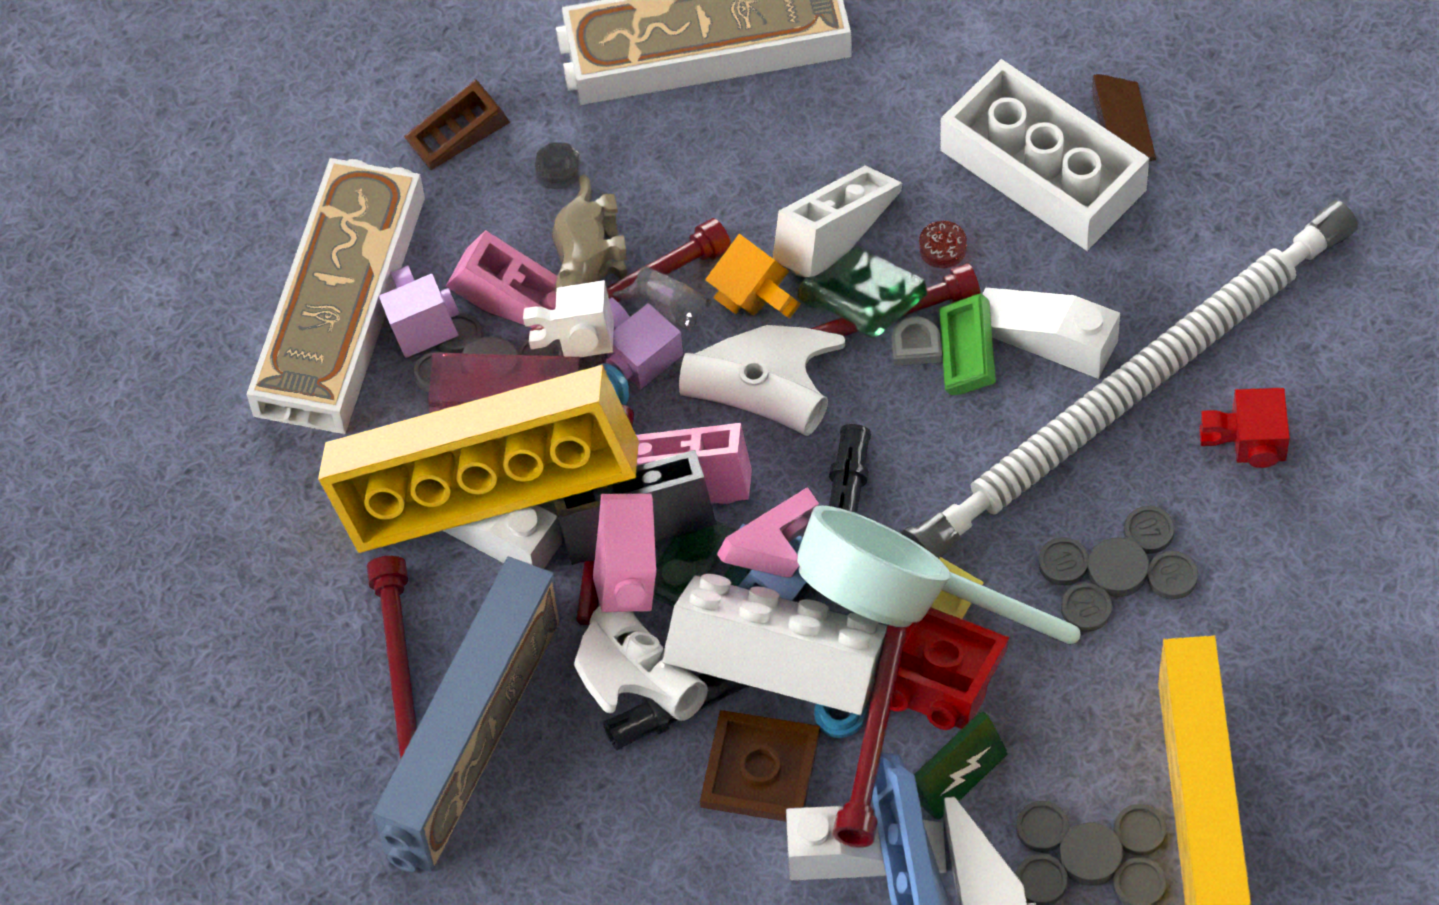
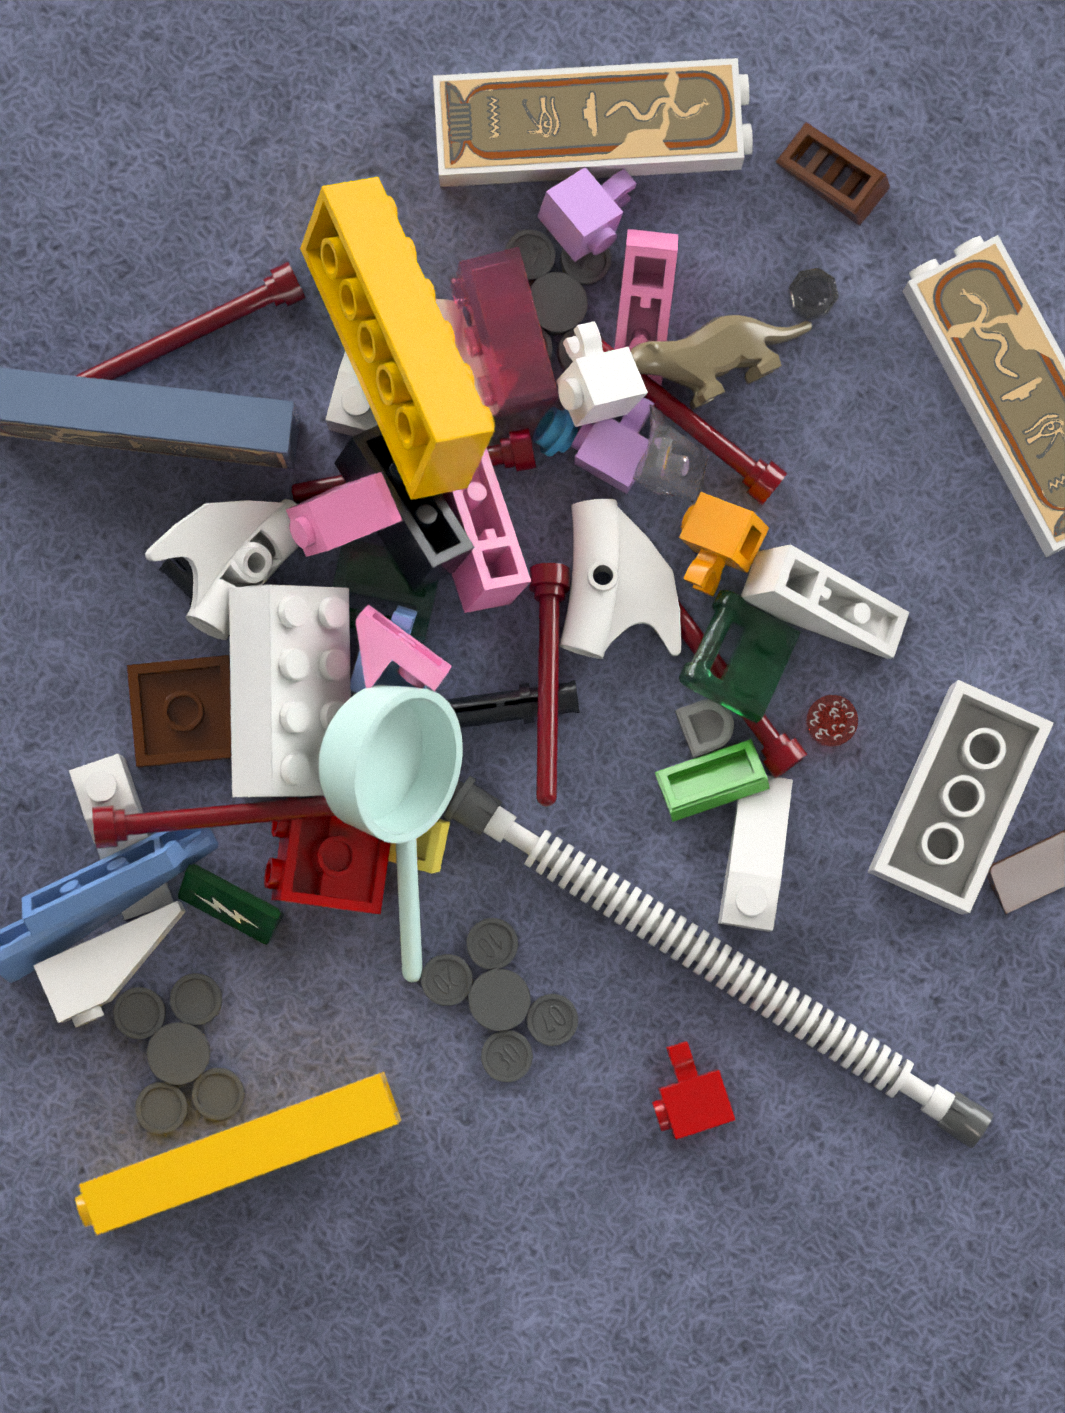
camera: 65 degrees right, 25 degrees up
(757, 429) = (549, 586): none -> dark red piece

